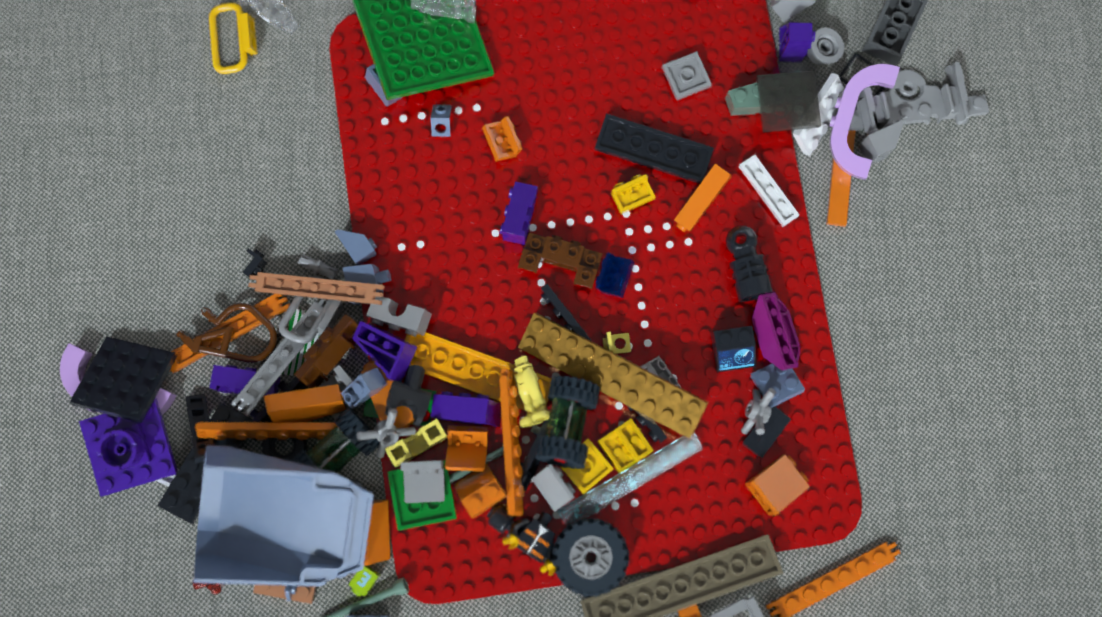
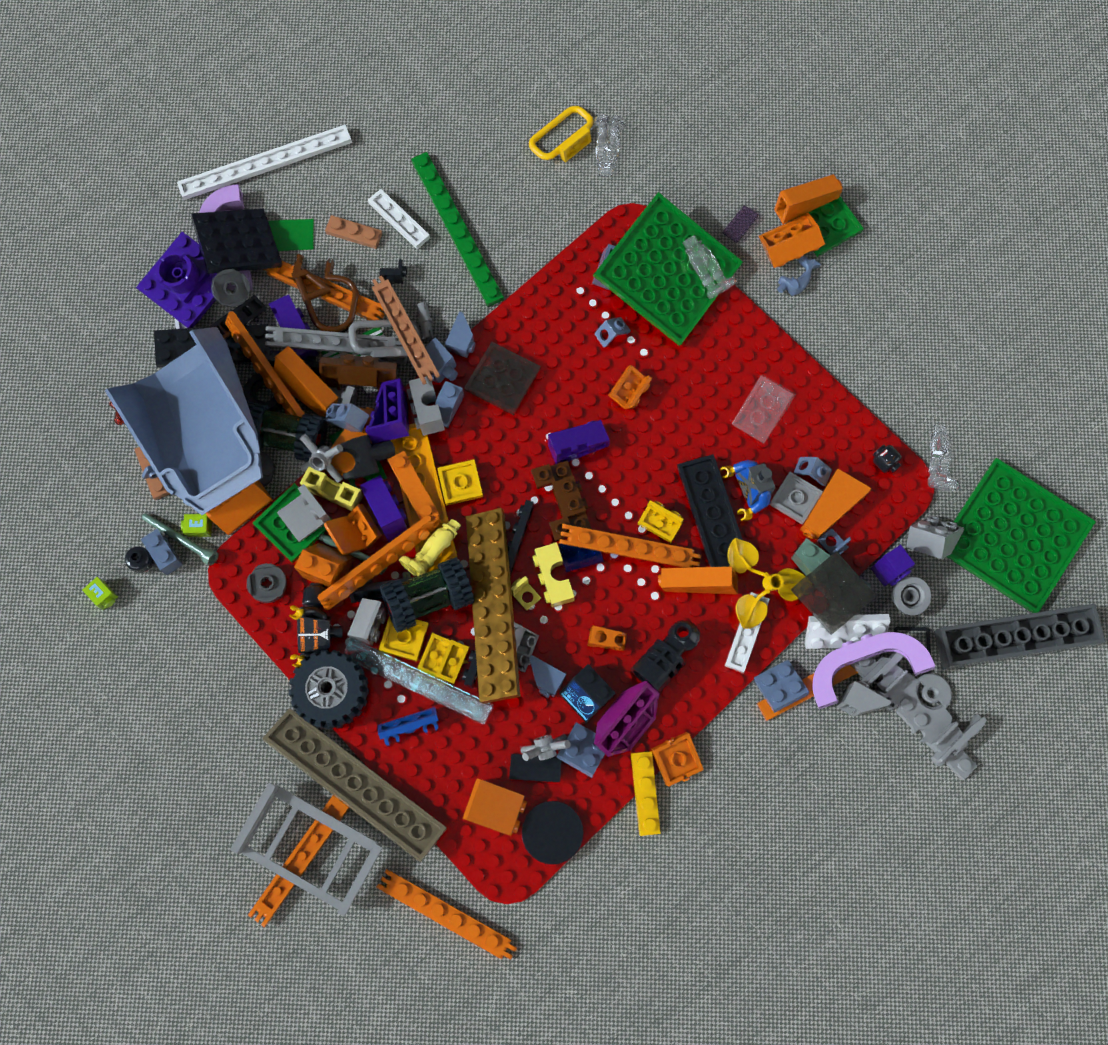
camera: 55 degrees right, 5 degrees down
(61, 307) = (264, 162): none -> white plate
(150, 326) = (293, 234): none -> green sticker
(157, 417) = (235, 278): none -> dark grey plate
(188, 273) = (353, 232): none -> nougat plate
(205, 226) = (399, 219): none -> white plate
(250, 184) = (457, 229): none -> green plate
(406, 293) = (449, 401): none -> sand blue slope
(418, 236) = (502, 378): none -> clear smoke plate
(462, 373) = (412, 485): none -> orange plate
(471, 550) = (259, 576): none -> dark grey plate
(485, 332) = (460, 482): none -> yellow plate
(596, 47) = (763, 408): none -> clear slope
(633, 317) = (556, 591): none -> light yellow arch
(637, 233) = (629, 546): none -> orange hinge
(654, 98) = (755, 484): none -> torso
(662, 510) = (408, 724): none -> blue plate
(675, 43) = (816, 469): none -> sand blue bracket
(699, 303) = (607, 638): none -> orange leg
(699, 372) = (546, 677): none -> sand blue slope
(710, 43) = (836, 500): none -> orange slope
(749, 71) = (840, 545): none -> sand blue bracket
(756, 174) = (749, 609): none -> yellow plant
(825, 452) = (552, 832): none -> black tile
(827, 195) = (781, 686): none -> sand blue plate
(832, 315) = (677, 759): none -> orange plate
(841, 358) = (645, 793): none -> yellow plate

